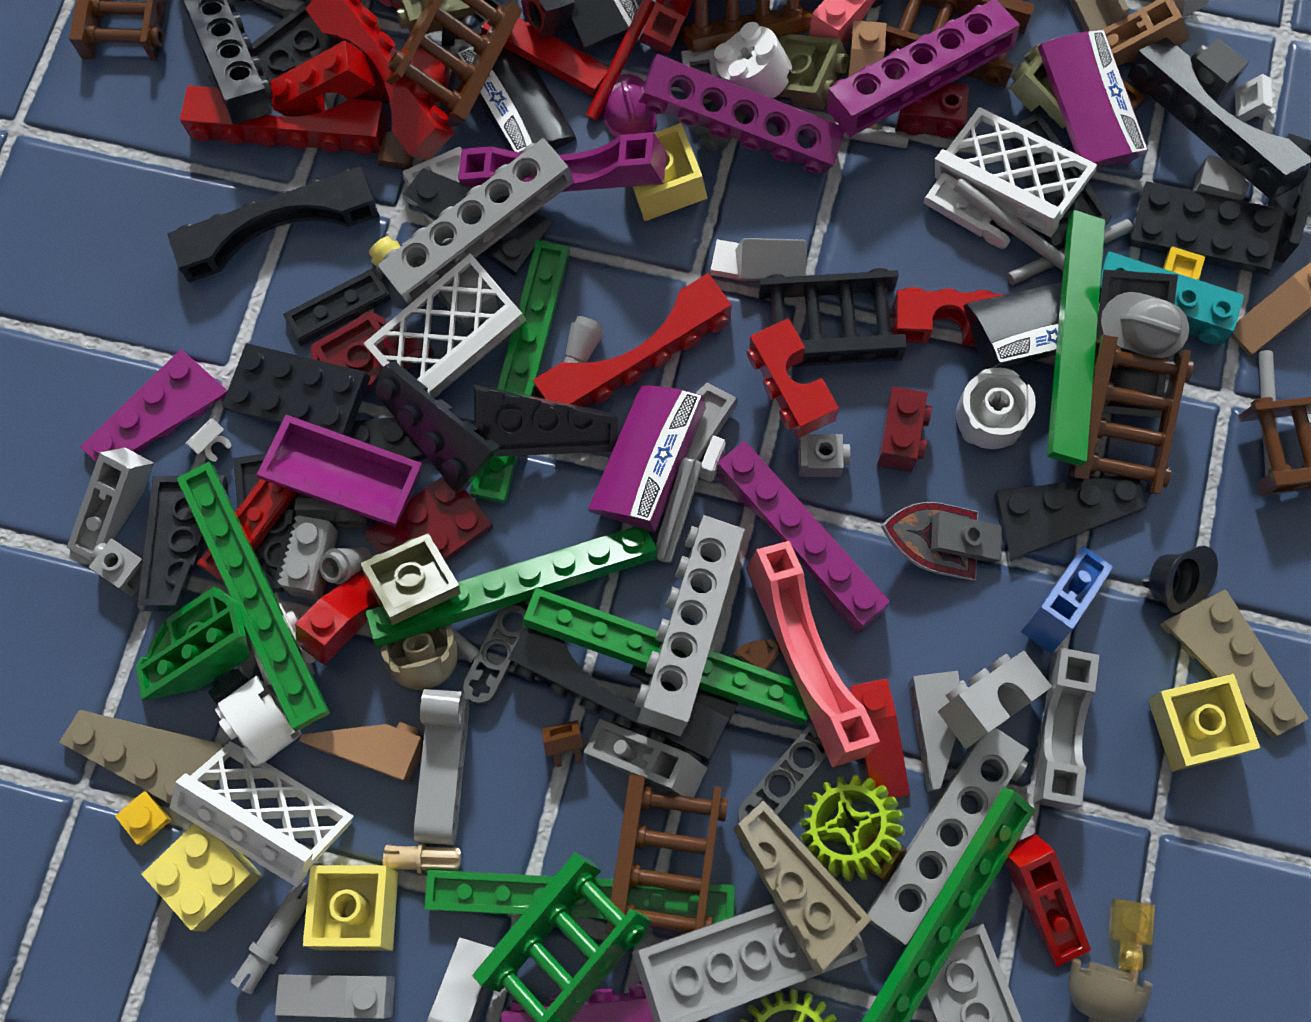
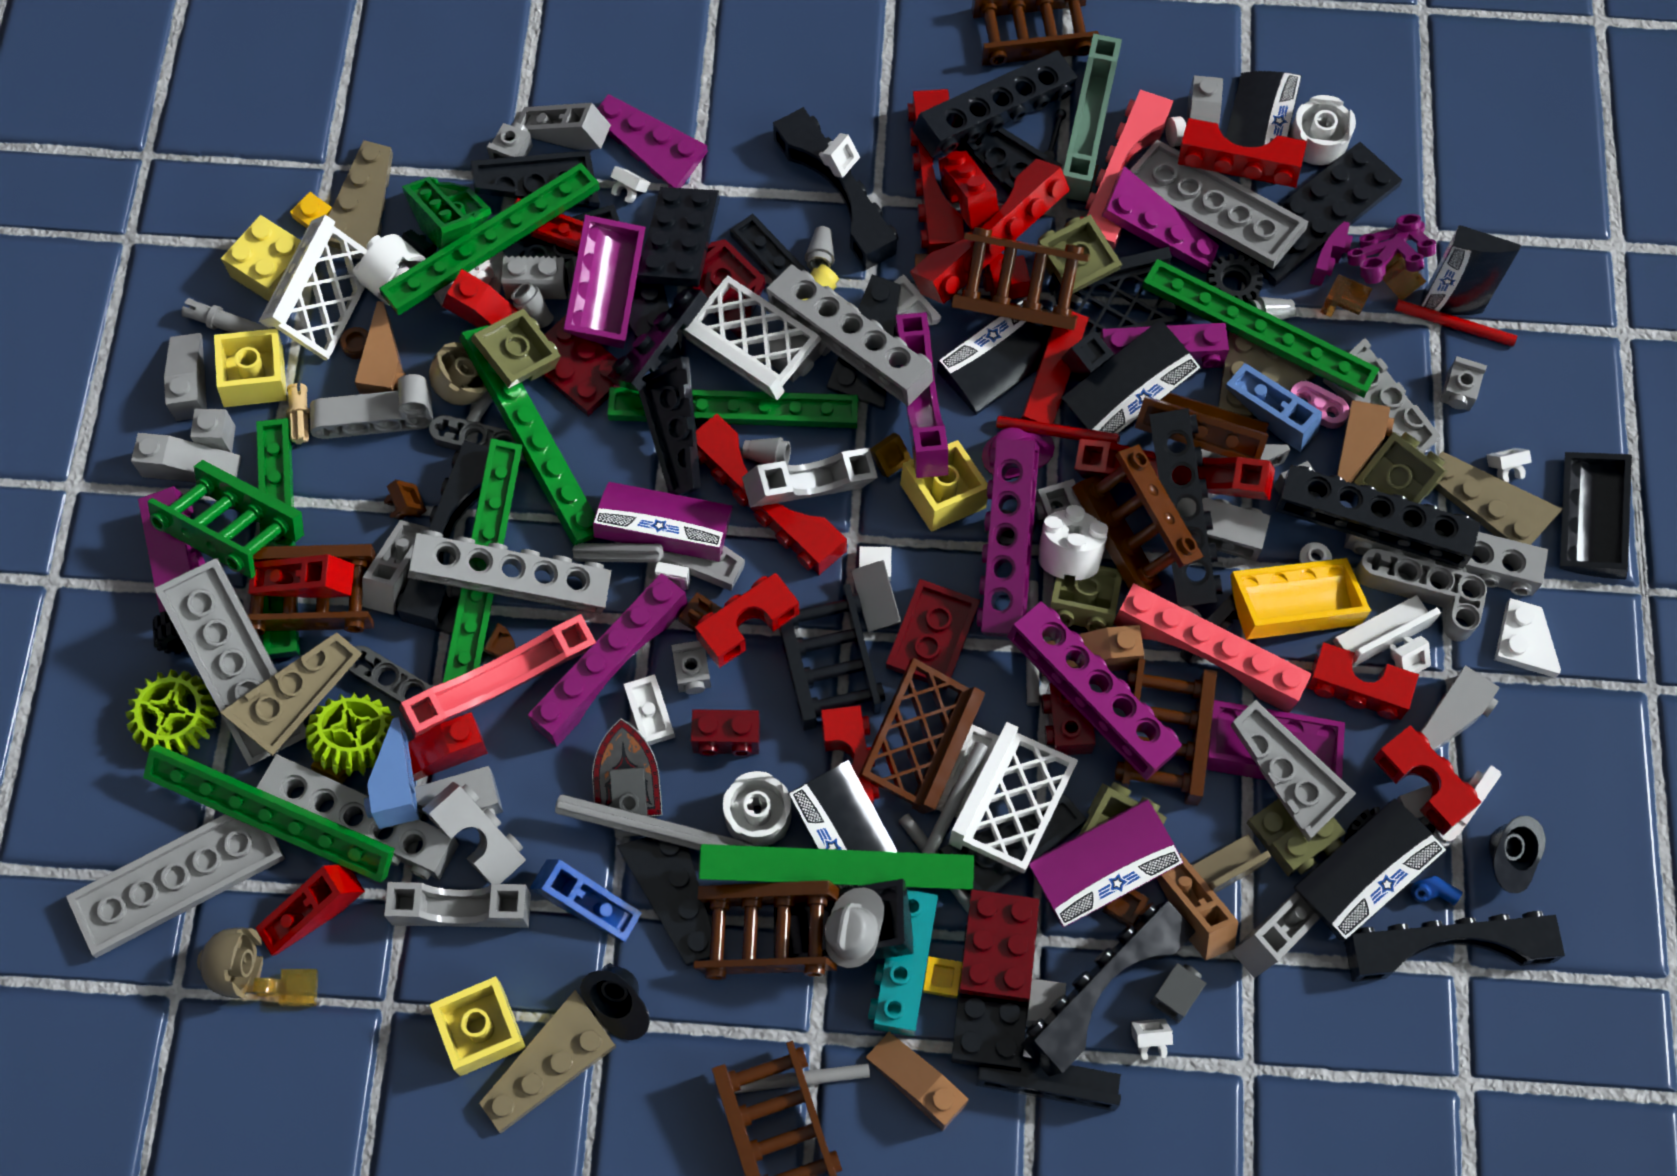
camera: 75 degrees right, 5 degrees down
(247, 198) = (840, 155): none -> white tile
(339, 780) = (353, 342): none -> reddish brown tile
(347, 251) = (820, 248): none -> light grey cone
(425, 964) = (213, 429): none -> light grey brick
(612, 221) = (890, 454): none -> pearl gold plate
(639, 318) = (785, 482): none -> light grey arch
(663, 858) = (303, 577): none -> red slope
(760, 437) = (696, 610): none -> reddish brown tile
(821, 214) = (933, 630): none -> dark red plate
(862, 505) = (649, 709): none -> white plate
(933, 779) = (391, 782): none -> medium blue slope
(946, 224) = (943, 754): none -> reddish brown fence
(1002, 516) = (640, 824): none -> light grey axle
(1164, 206) = (999, 946): none -> dark red plate

